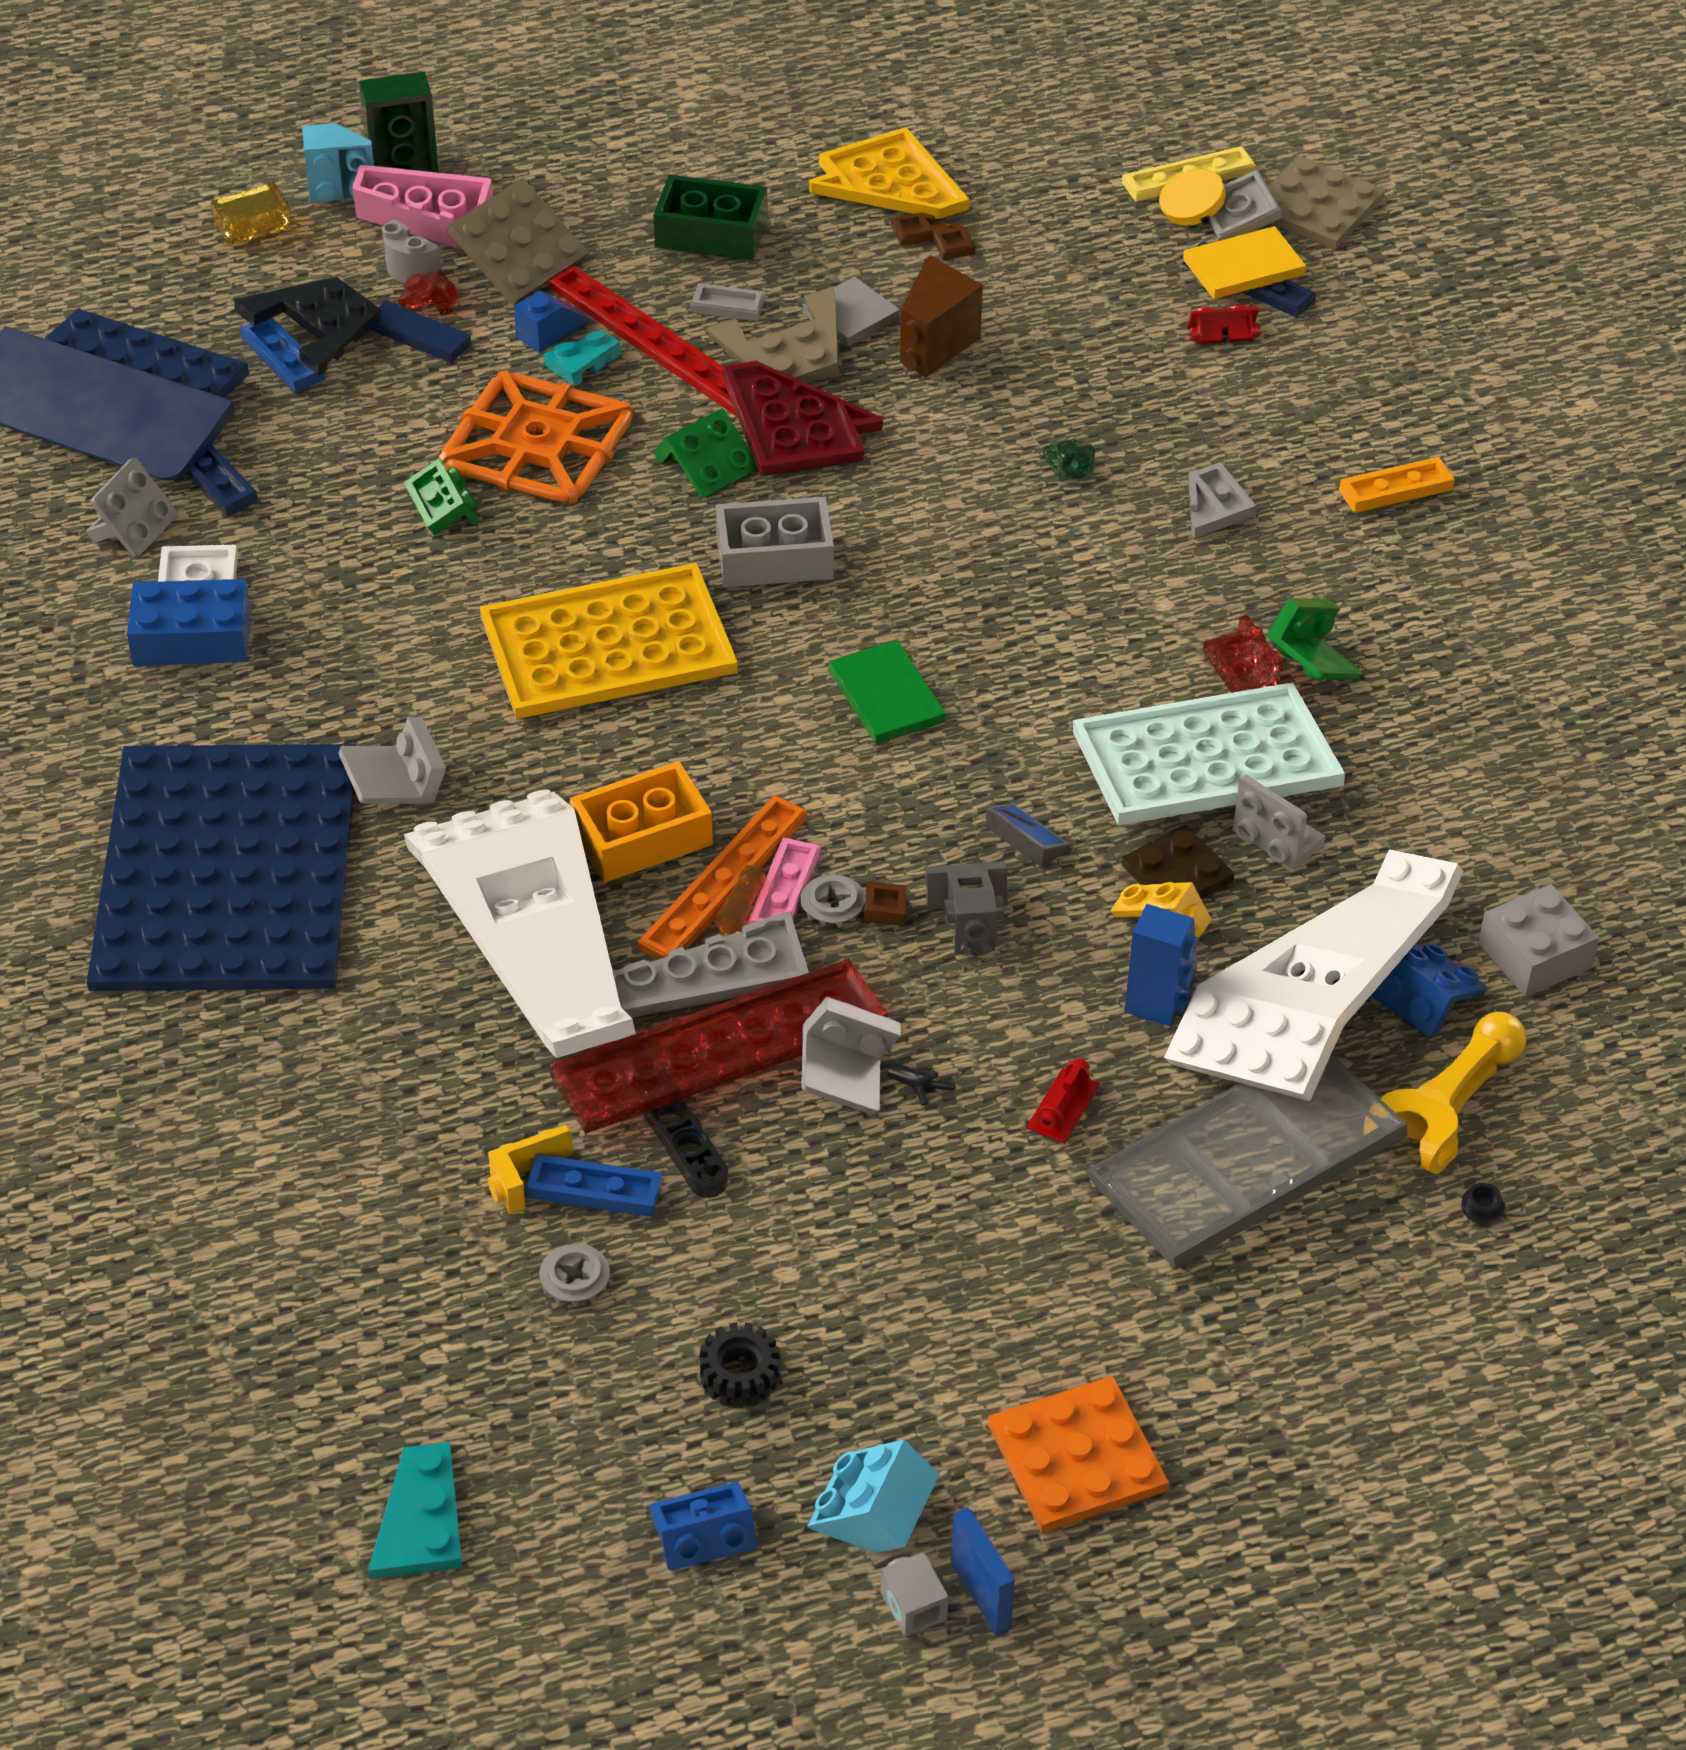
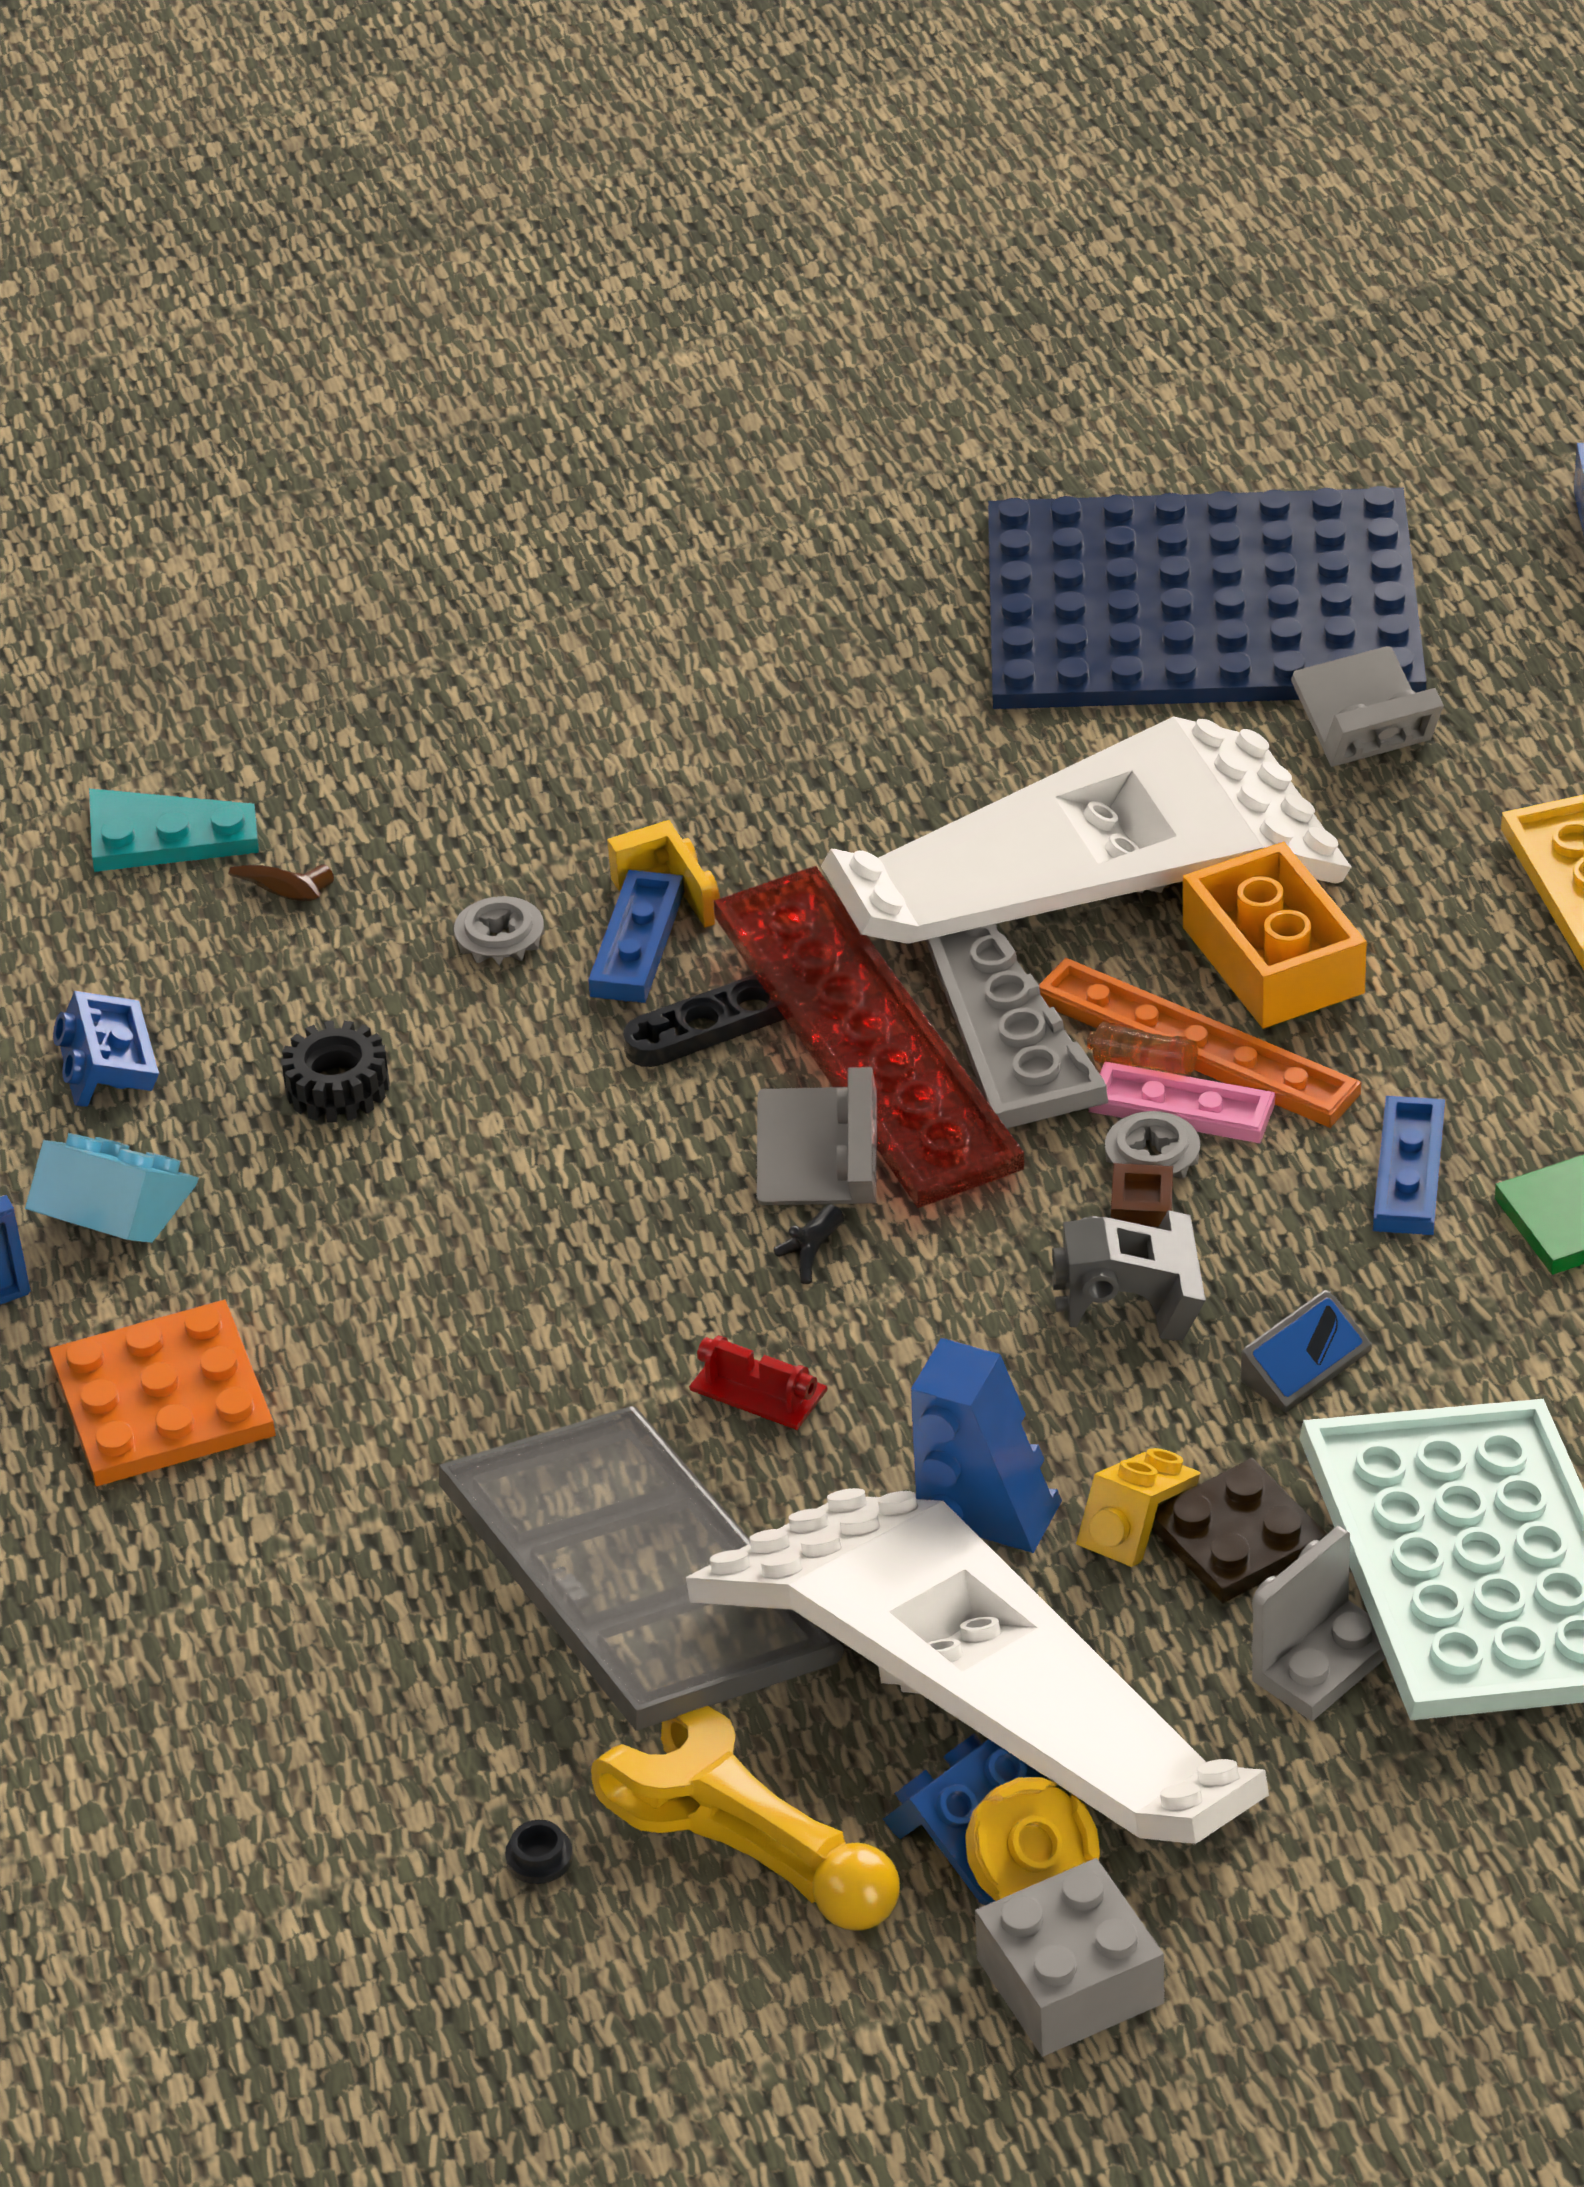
camera: 95 degrees right, 5 degrees down
(507, 1413) = (286, 883): none -> reddish brown bar
(849, 778) = (1409, 1165): none -> tile
(1466, 961) = (1027, 1835): none -> yellow tile

